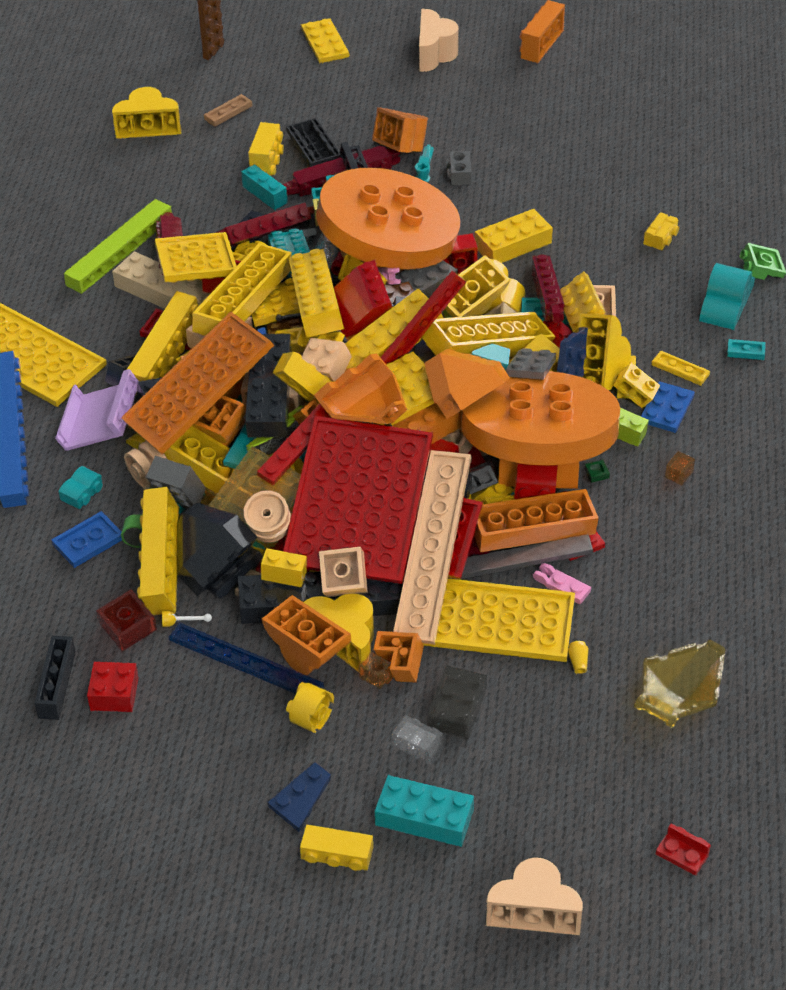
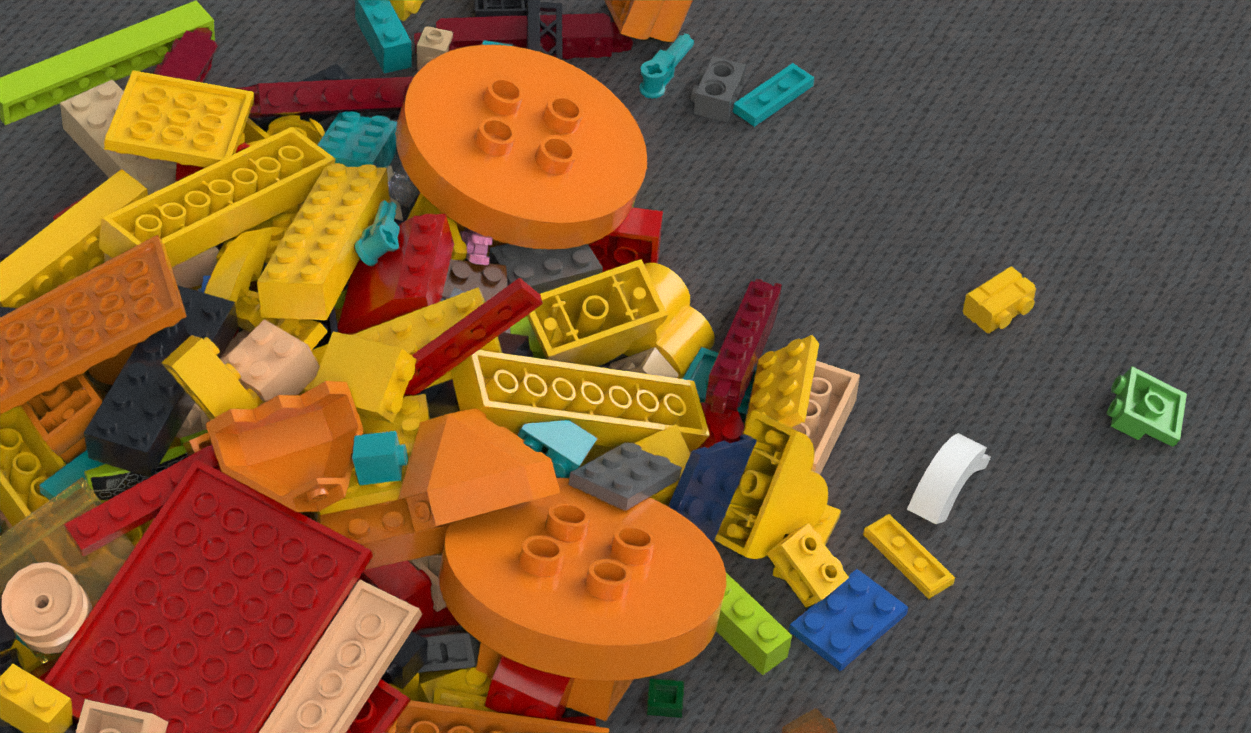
camera: 15 degrees right, 0 degrees up
(273, 317) = (239, 265): none -> yellow slope
(298, 189) = (432, 44): none -> tan bracket
(344, 280) = (380, 236): none -> teal connector
(387, 343) = (373, 371): none -> yellow brick
(413, 385) = (378, 457): none -> teal brick
(489, 163) = (773, 94): none -> teal plate
(514, 236) = (742, 236): yellow brick -> none
(683, 323) = (946, 477): none -> white arch
(726, 295) = (1049, 451): teal brick -> none
(746, 349) = (1038, 558): teal plate -> none

